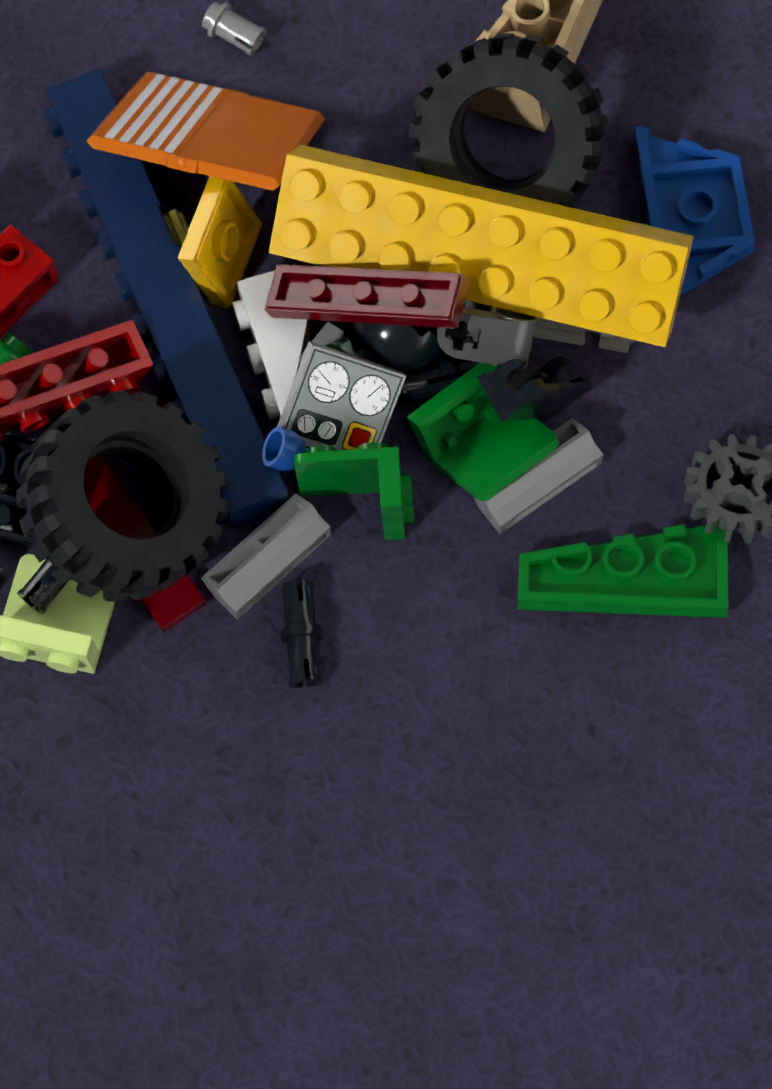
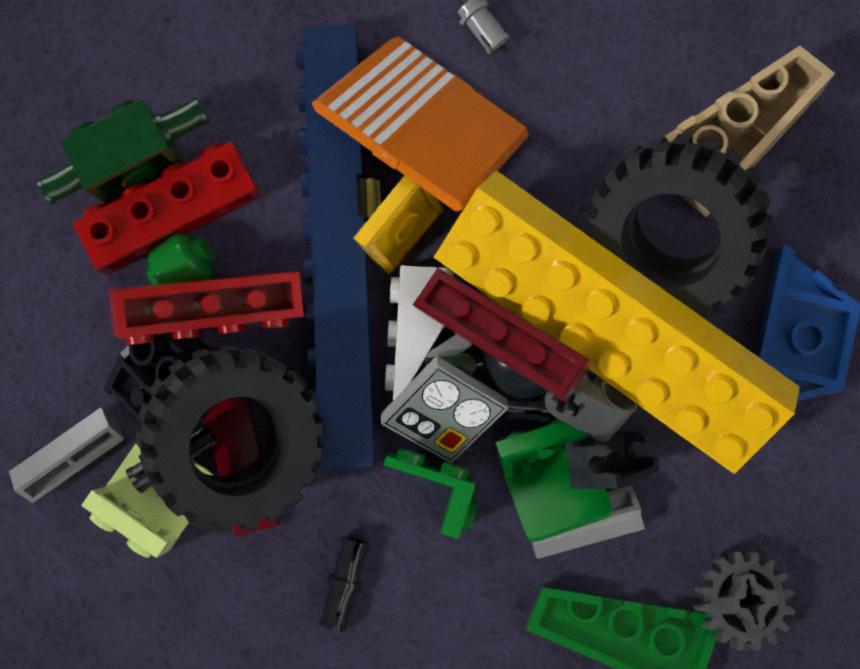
camera: 15 degrees right, 15 degrees up
(267, 555) = (340, 507): light grey piece -> none
(281, 448) = (382, 437): blue hinge -> none

